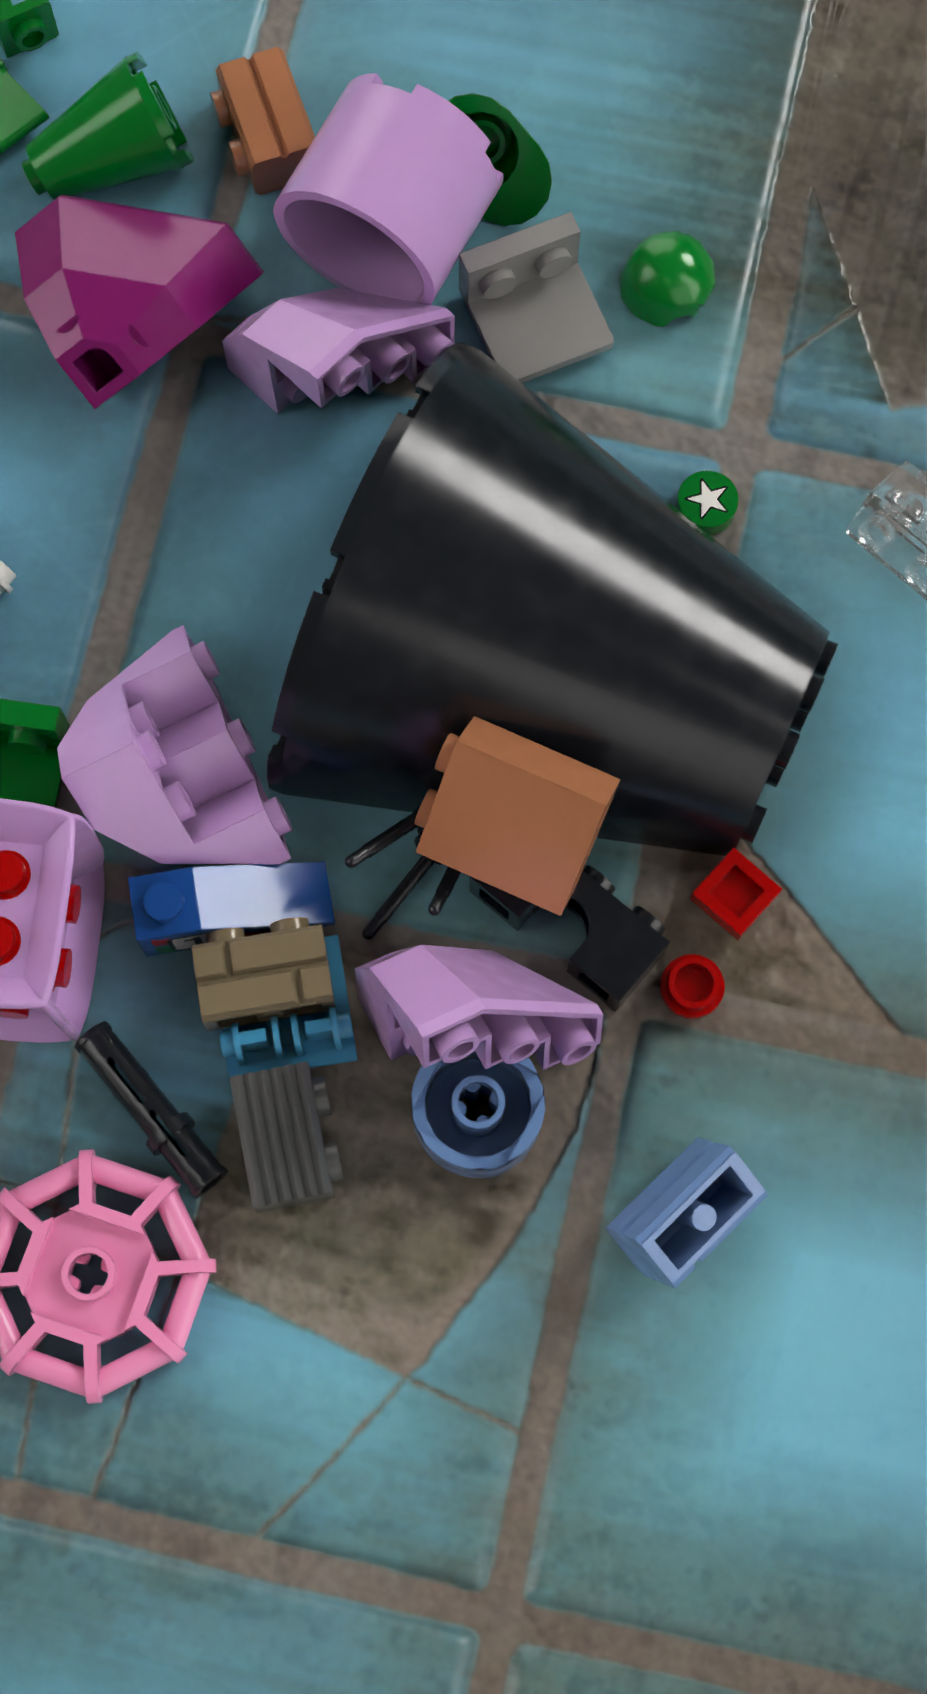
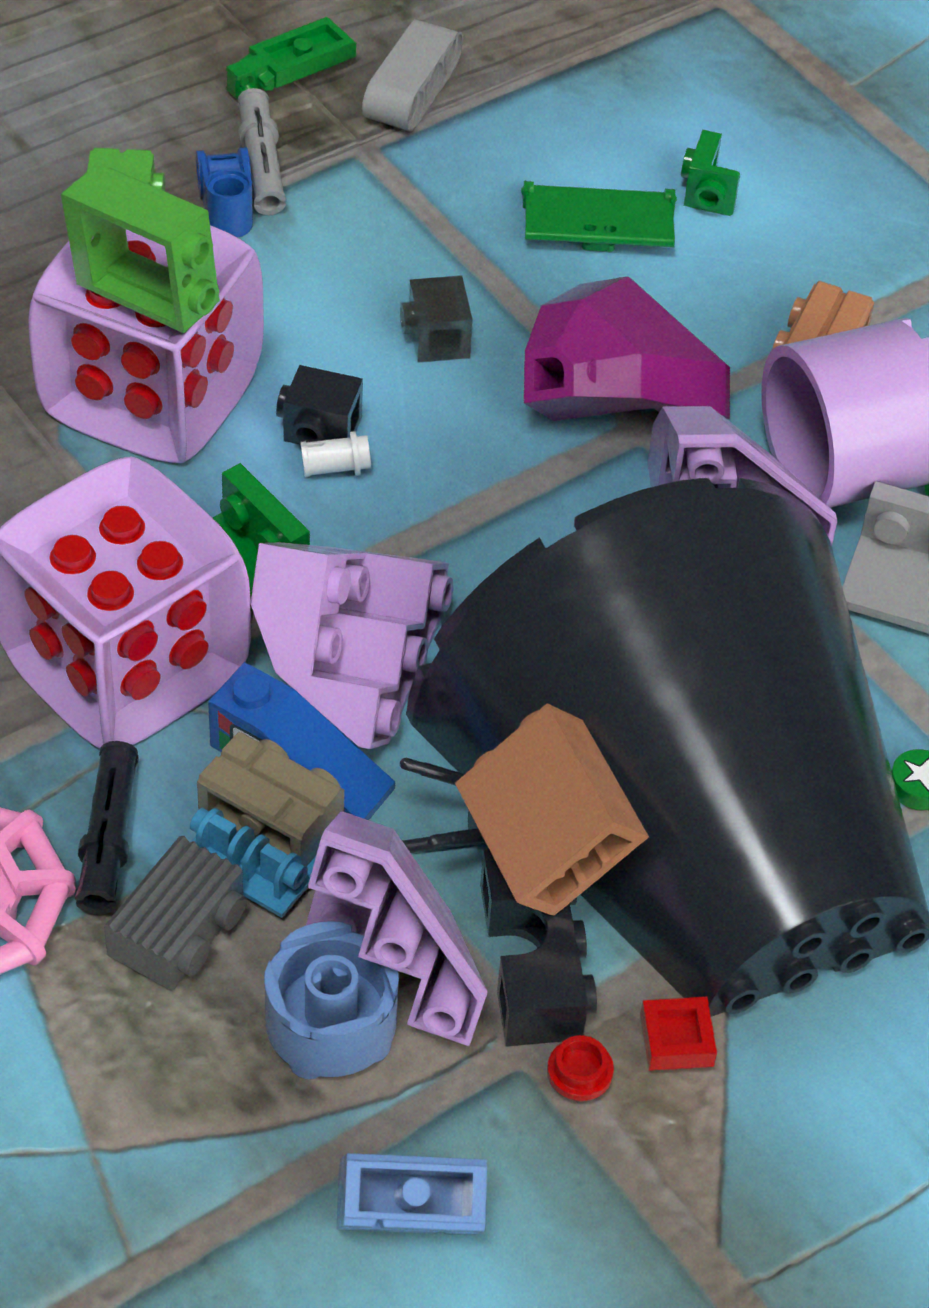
camera: 40 degrees right, 25 degrees down
(108, 136) = (705, 273): green cone -> none

